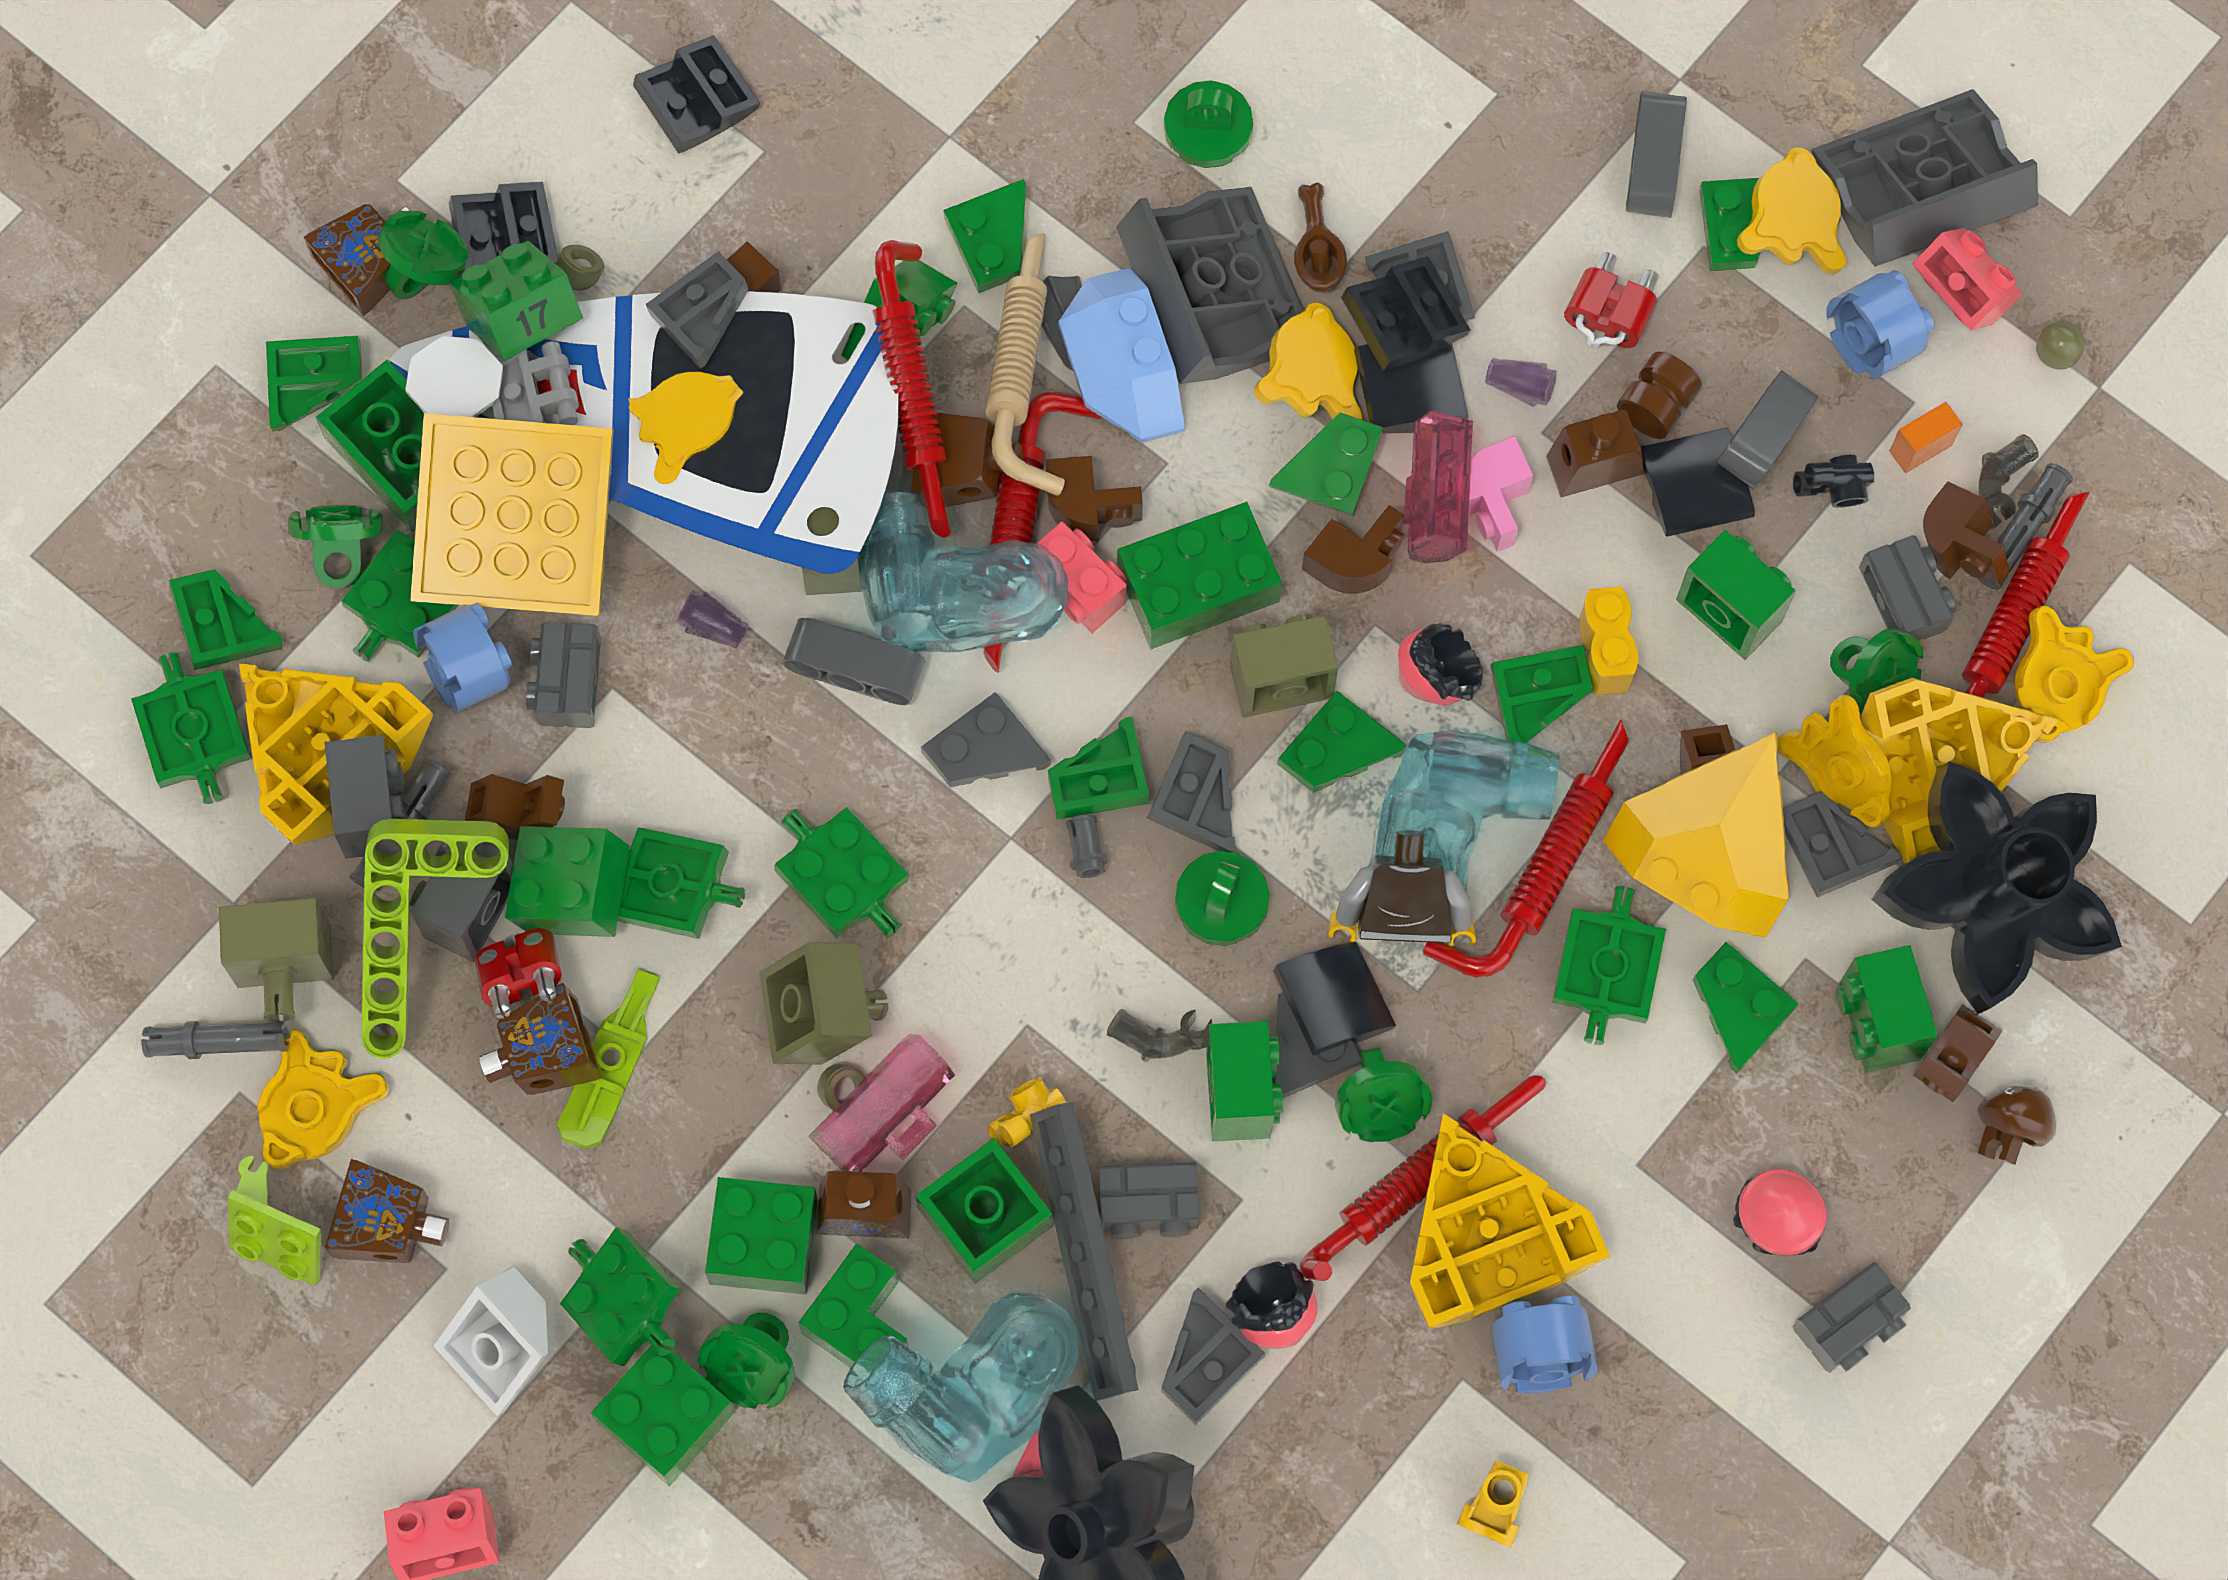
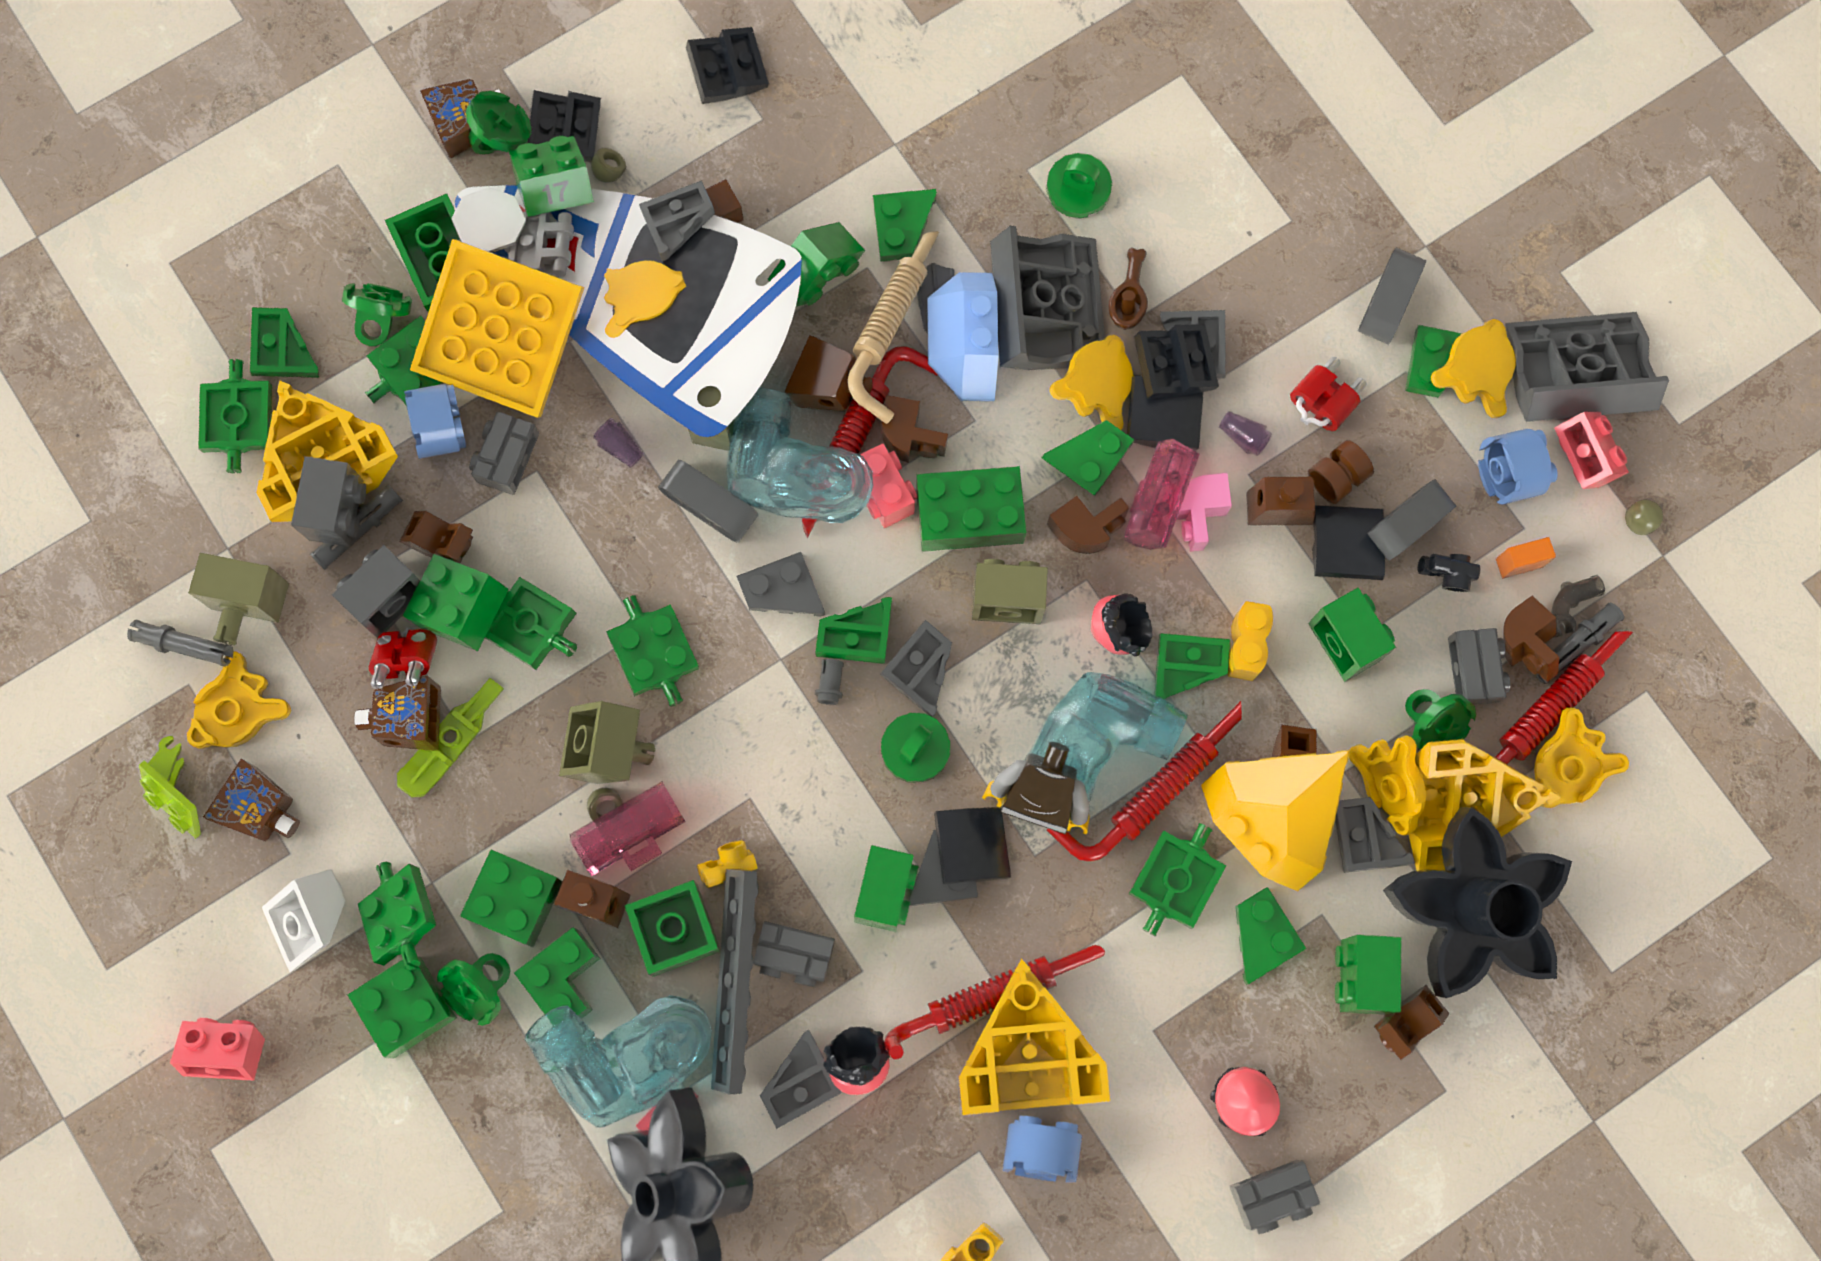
camera: 15 degrees right, 5 degrees up
(309, 375) = (395, 189): green wing -> none
(394, 915) = (319, 595): lime beam -> none
(909, 376) = (804, 296): red piece -> none
(1155, 1042) = (835, 840): clear smoke piece -> none
(1338, 745) = (1032, 659): green wing -> none
(1382, 1098) = (982, 932): green tile -> none
(2013, 1118) = (1437, 1082): reddish brown piece -> none

